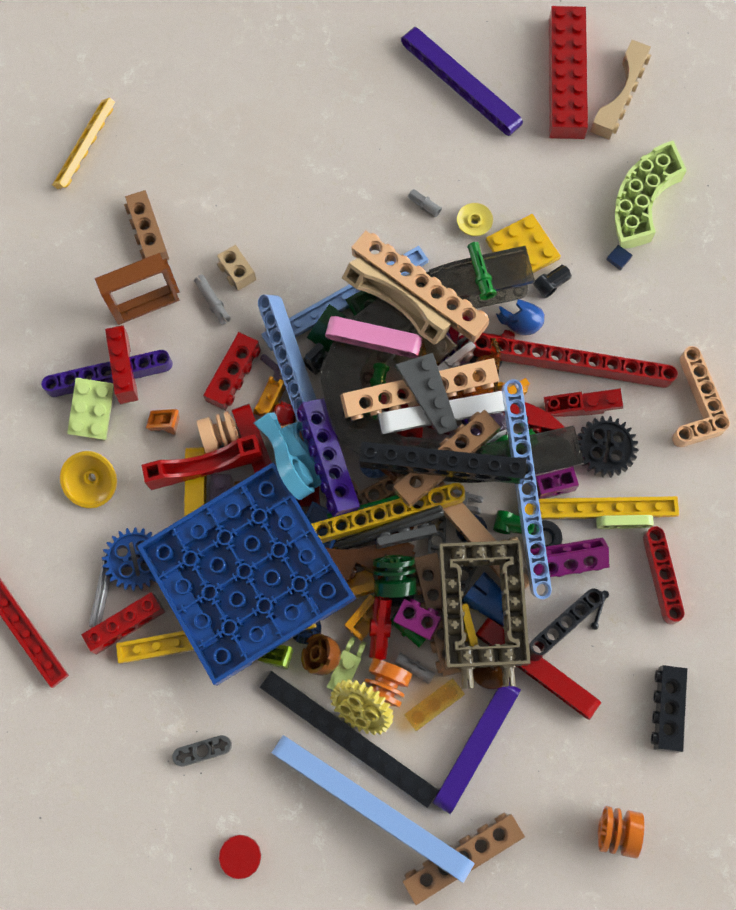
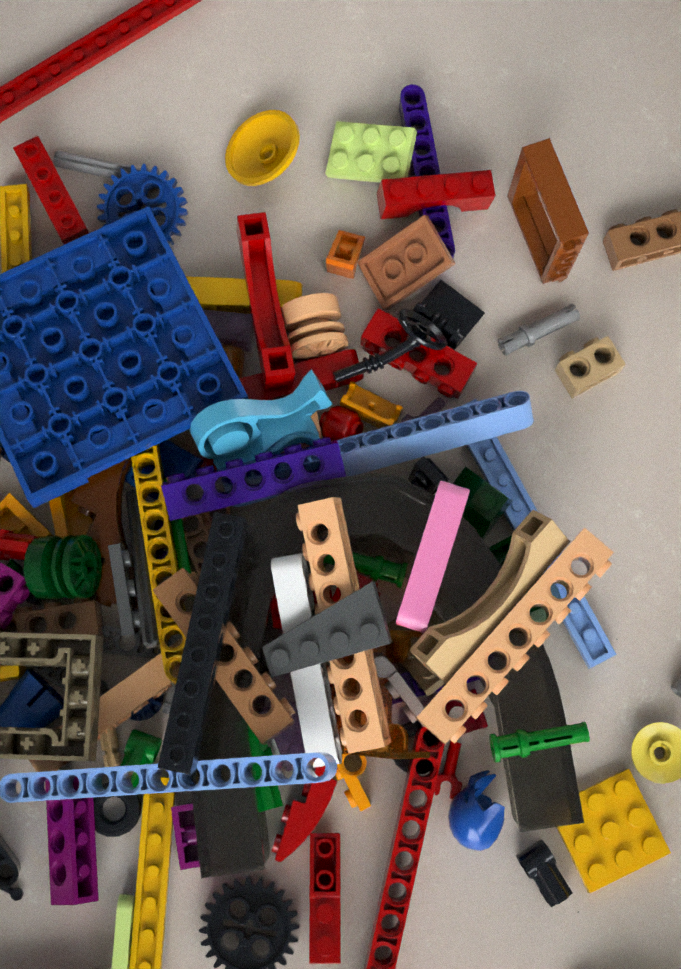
camera: 90 degrees right, 5 degrees up
(170, 379) = (406, 262): none -> nougat plate
(204, 356) = (449, 313): none -> black hinge
(223, 366) = (417, 335): none -> black dish

